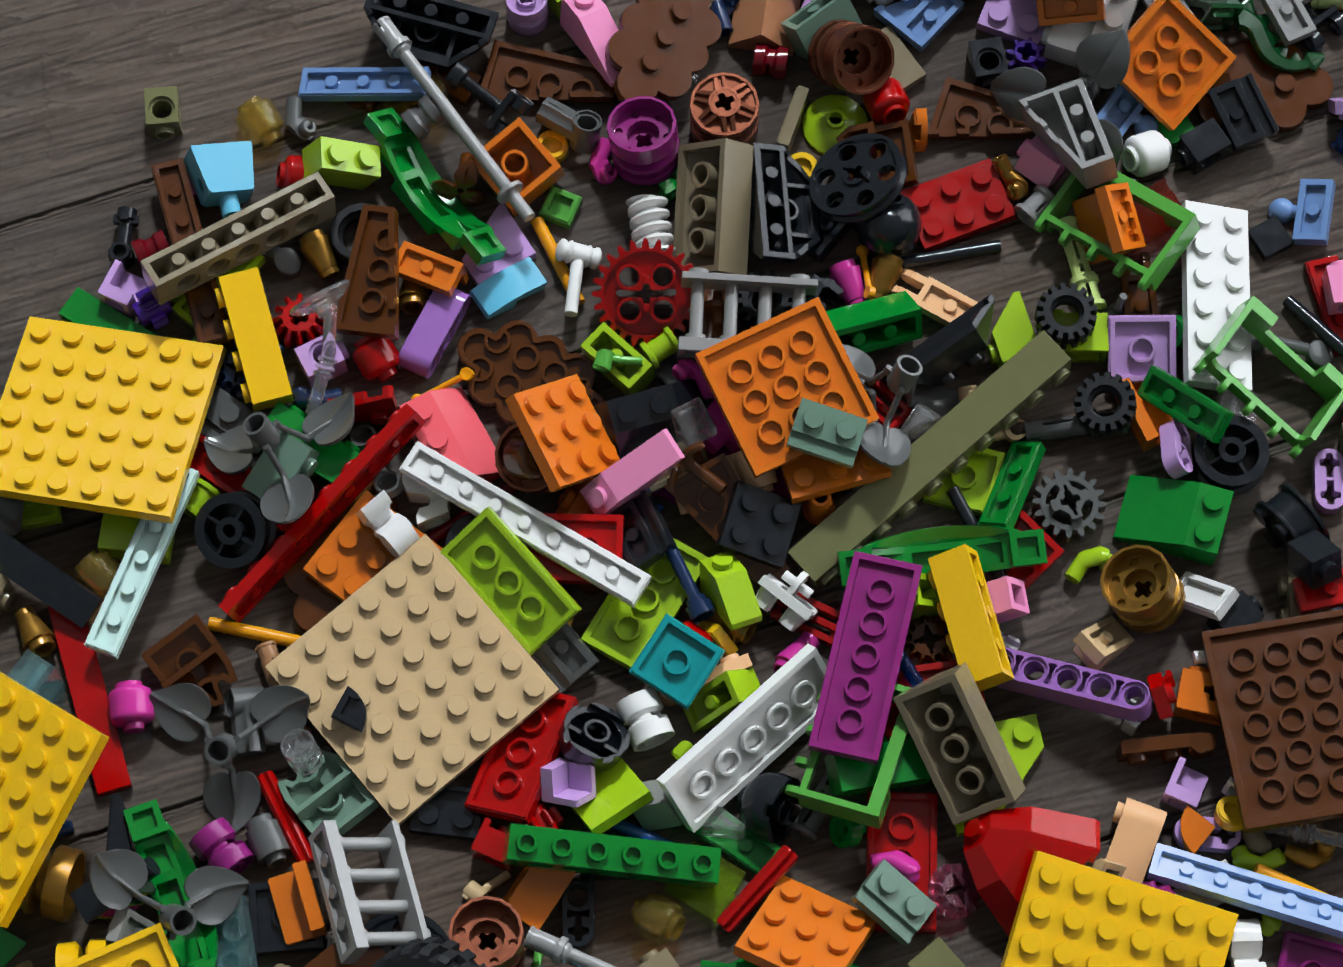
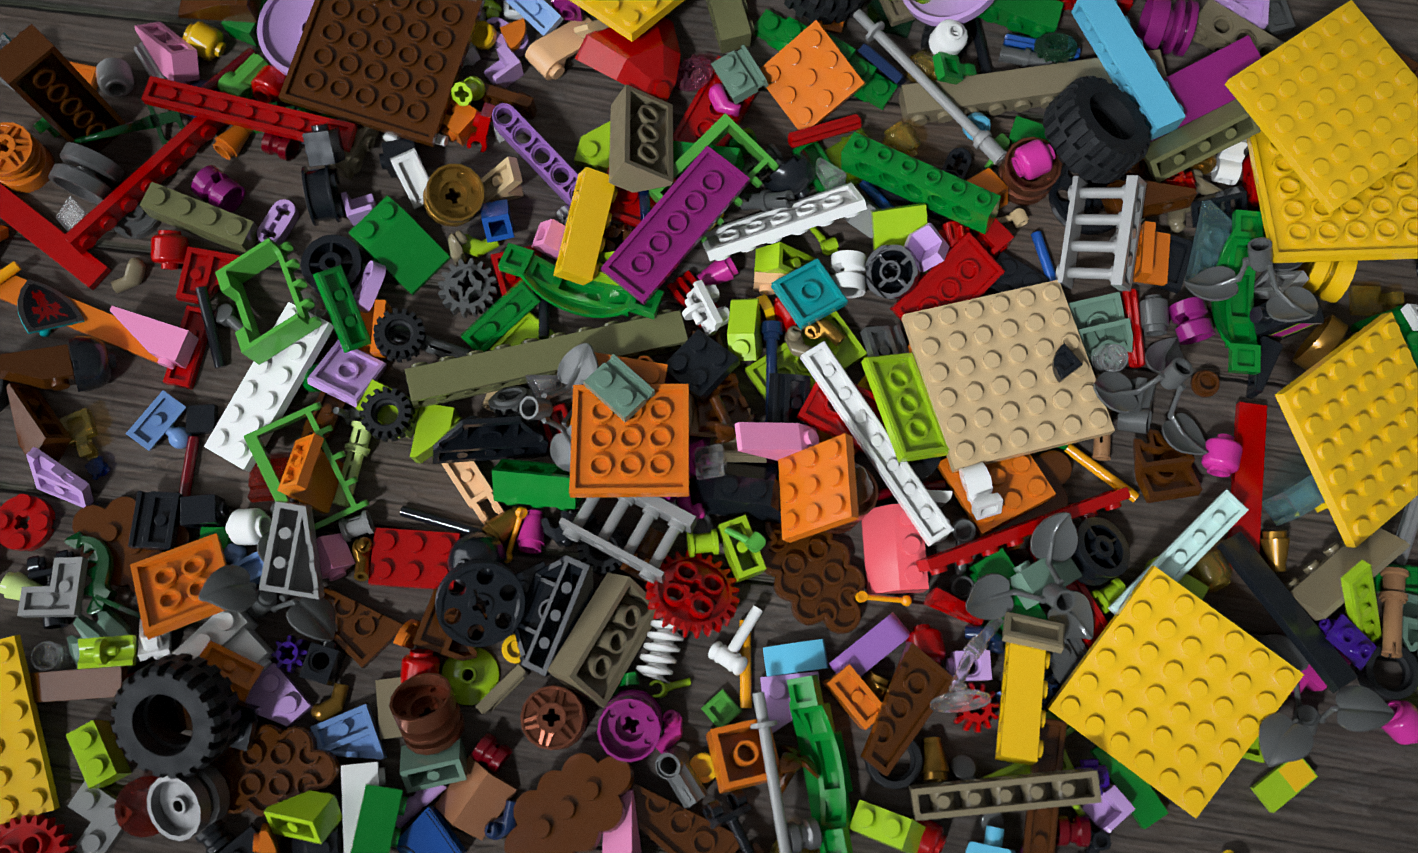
camera: 155 degrees left, 5 degrees up
(178, 789) = (1205, 383): none -> reddish brown plate
(278, 403) = (1033, 632): none -> dark tan tile
(419, 852) = (1044, 256): none -> blue bar
(488, 932) = (1033, 159): none -> dark pink head
(622, 207) = (669, 686): none -> lime hand
(636, 638) = (824, 329): none -> pearl gold arm
(661, 604) = (795, 341): none -> dark tan arm
(779, 761) = (767, 200): none -> dark grey pin
(948, 379) = (508, 399): none -> dark grey gear
(953, 35) = (332, 706): none -> pearl gold arm
(1079, 592) = (497, 220): none -> blue brick
(1105, 540) = (455, 241): none -> dark tan arm
(1199, 718) = (469, 90): none -> lime bush
(1245, 538) = (358, 207): none -> lavender panel
(1250, 184) = (189, 466): none -> dark red bar

